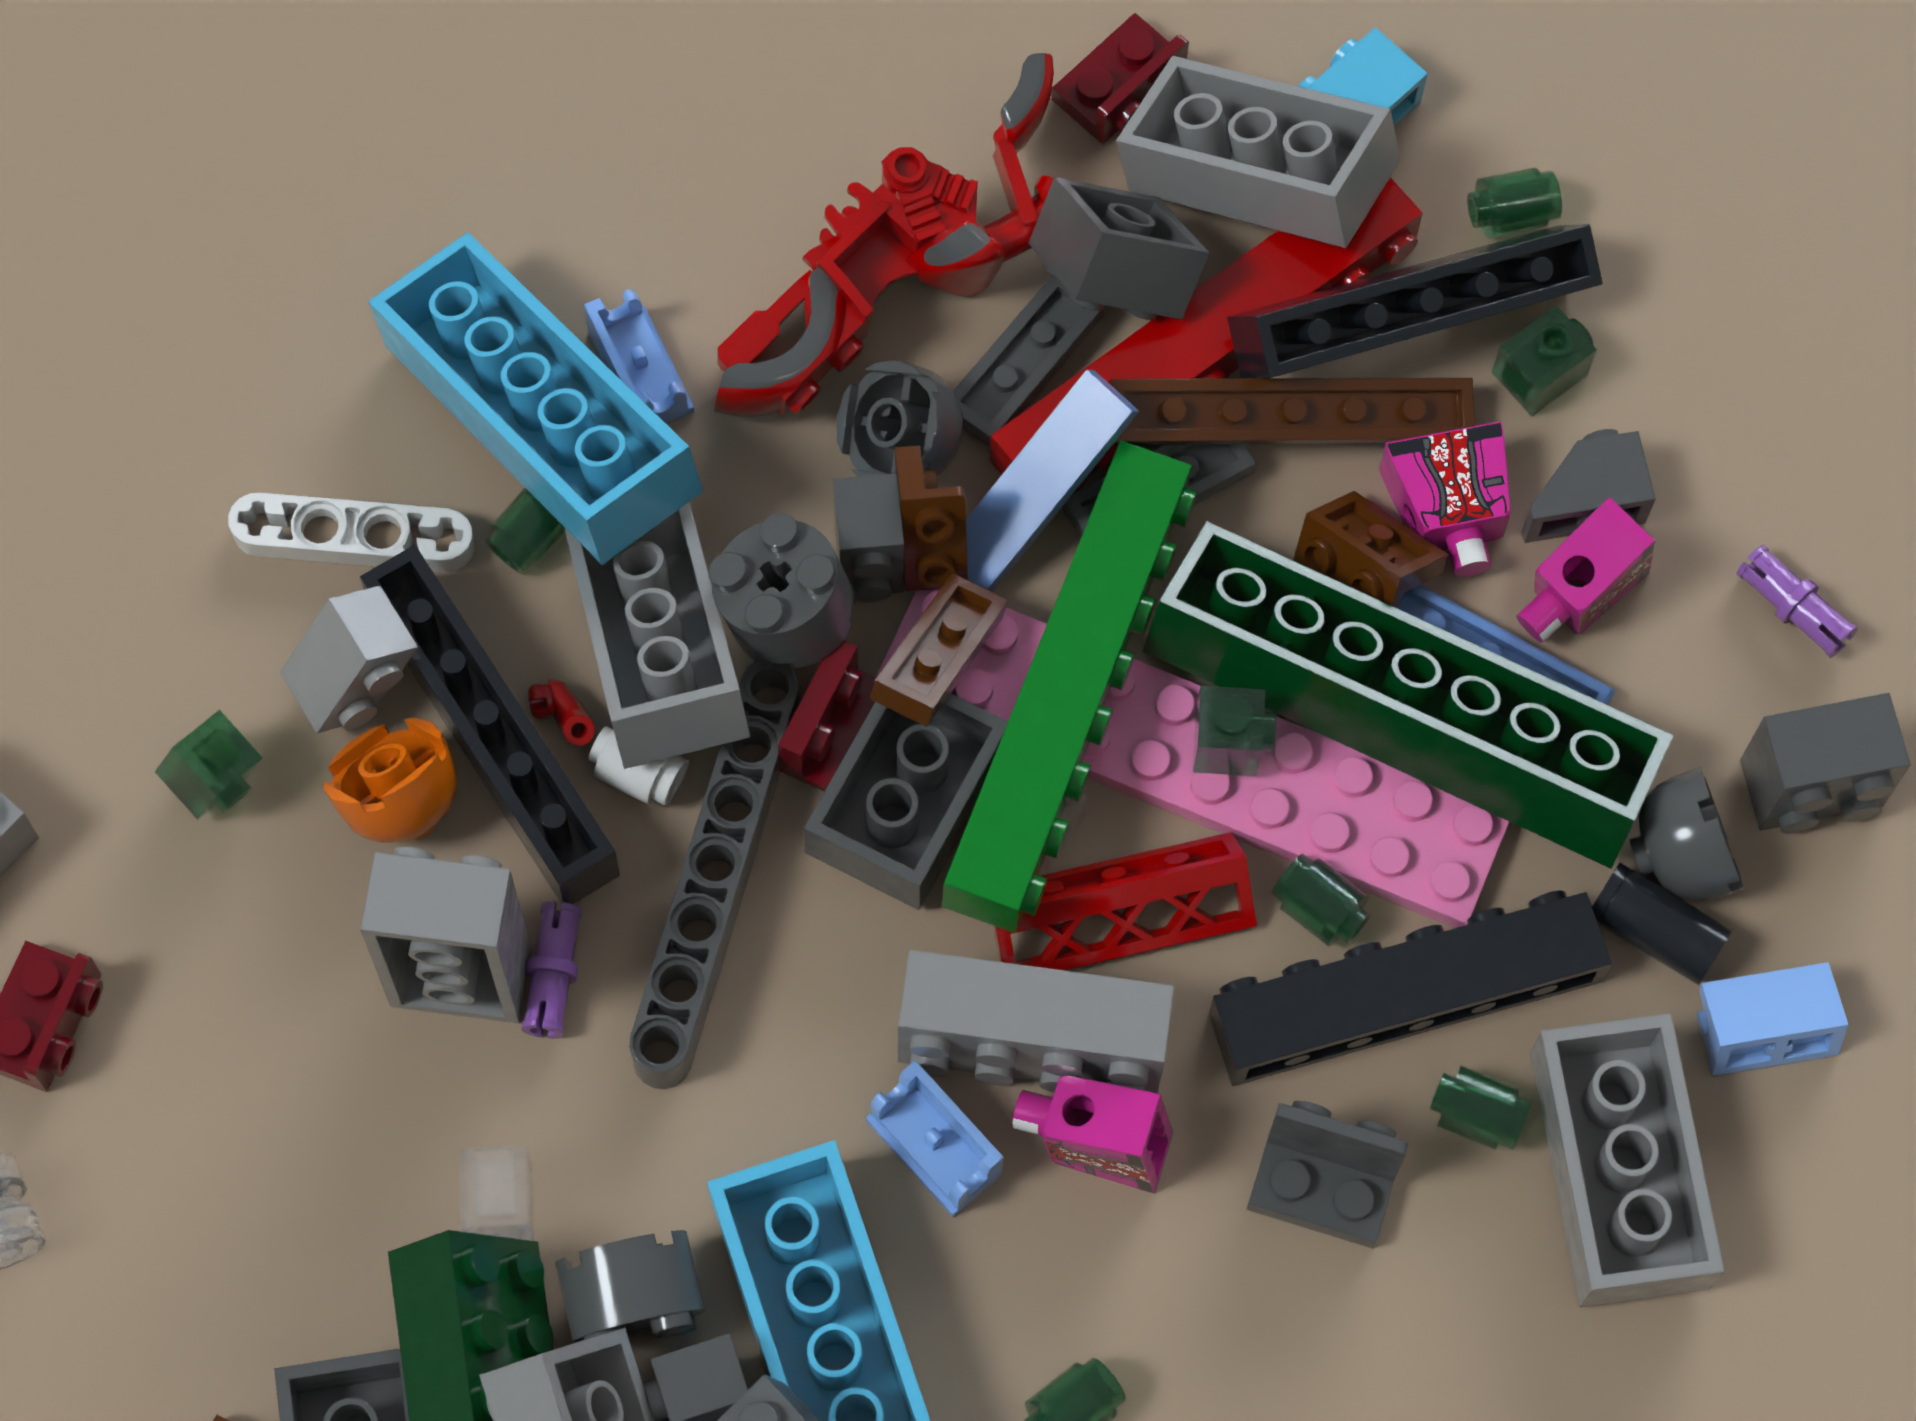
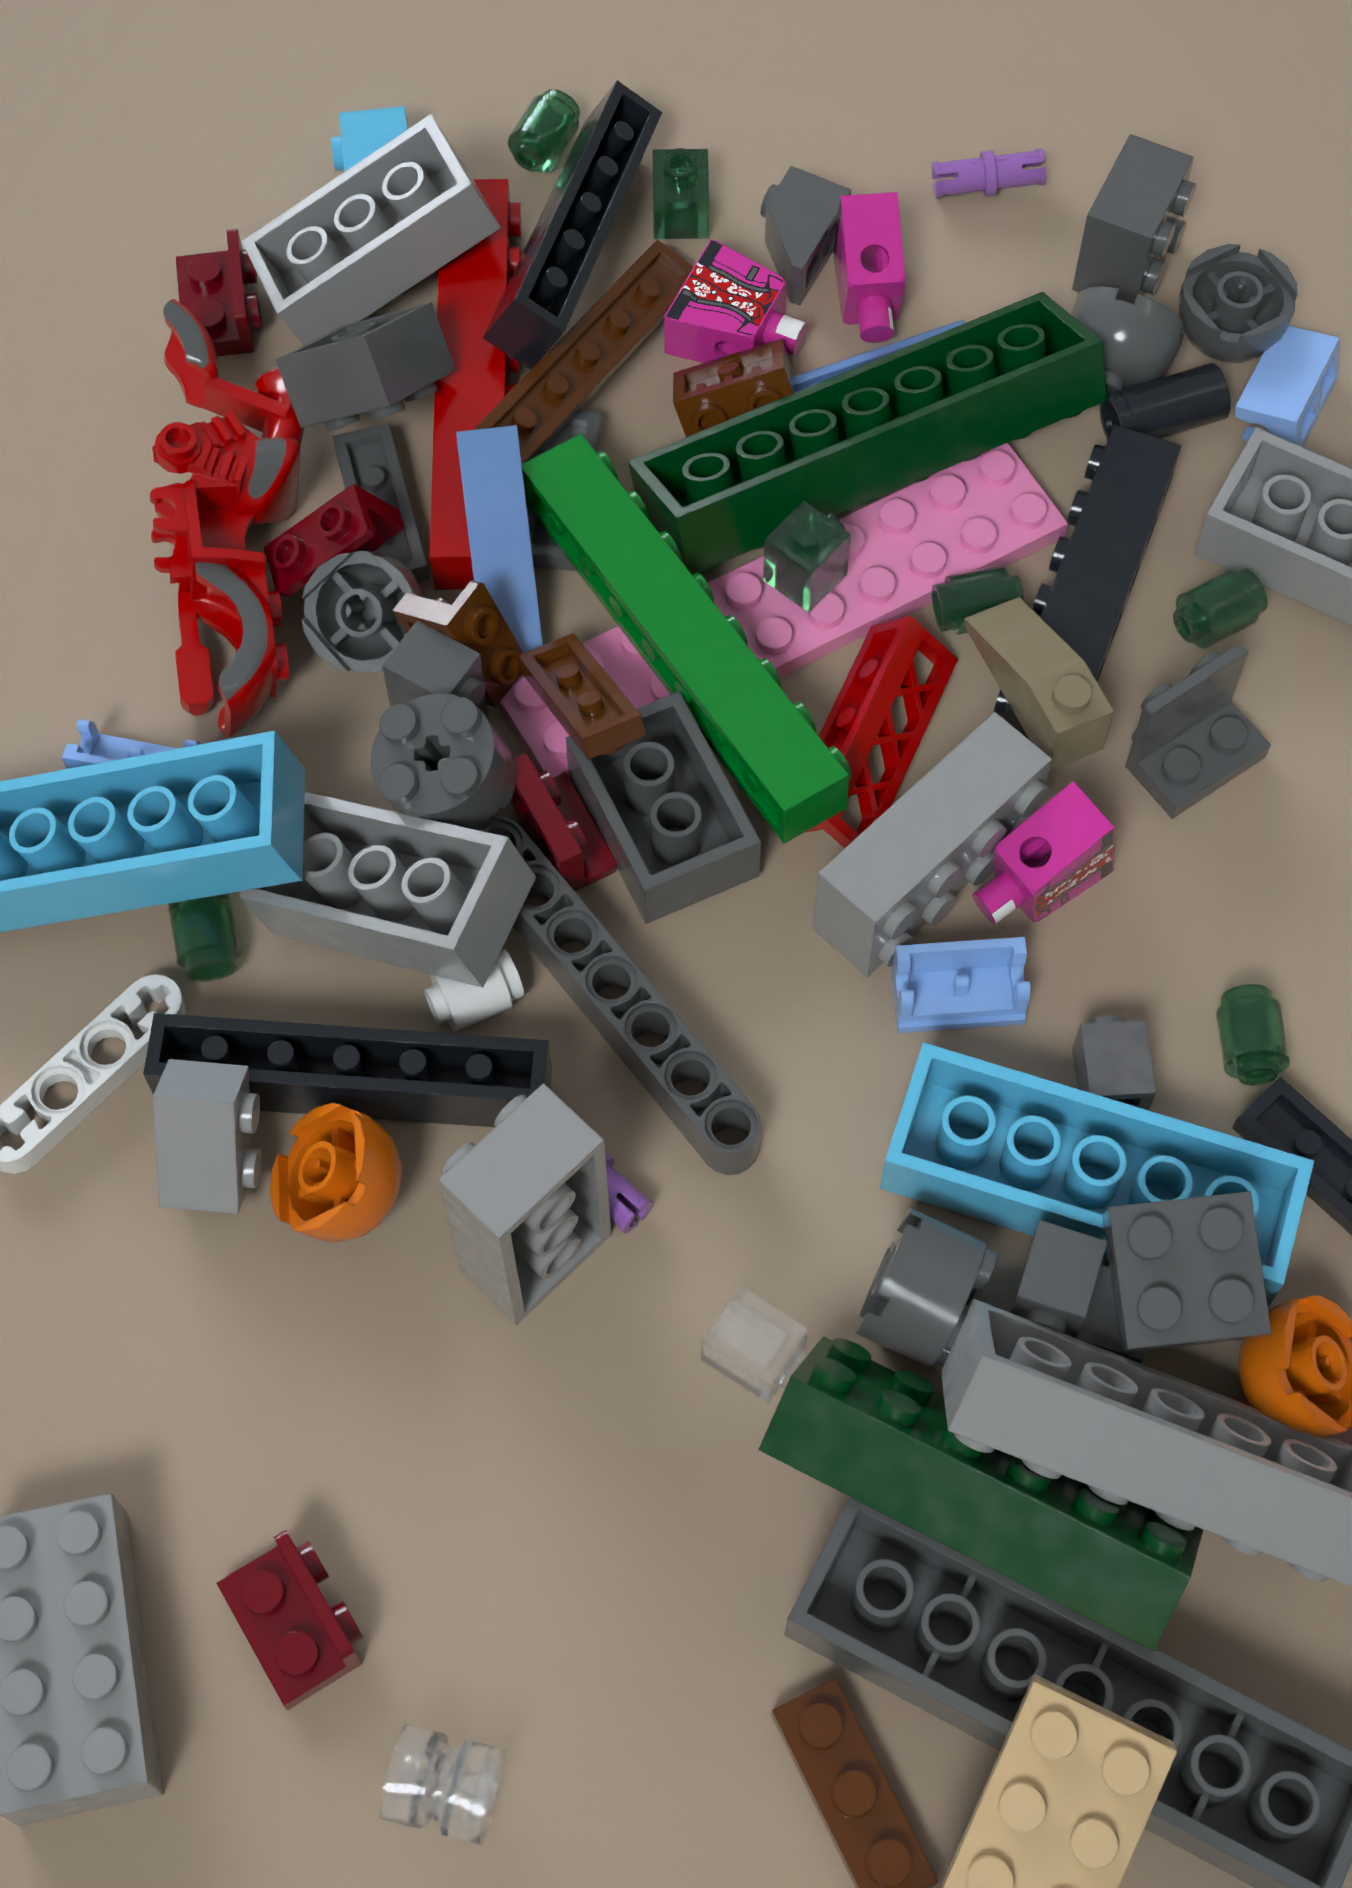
camera: 50 degrees left, 5 degrees down
(210, 766) = (197, 1315): clear green brick -> none
(568, 712) = (386, 1011): red arm -> none
(939, 348) = (342, 525): none -> dark red bracket
(953, 1312) = (1115, 1060): none -> flat silver brick
(1254, 1001) = (1042, 681): none -> dark tan slope
(1811, 908) = (1236, 303): none -> dark grey cylinder

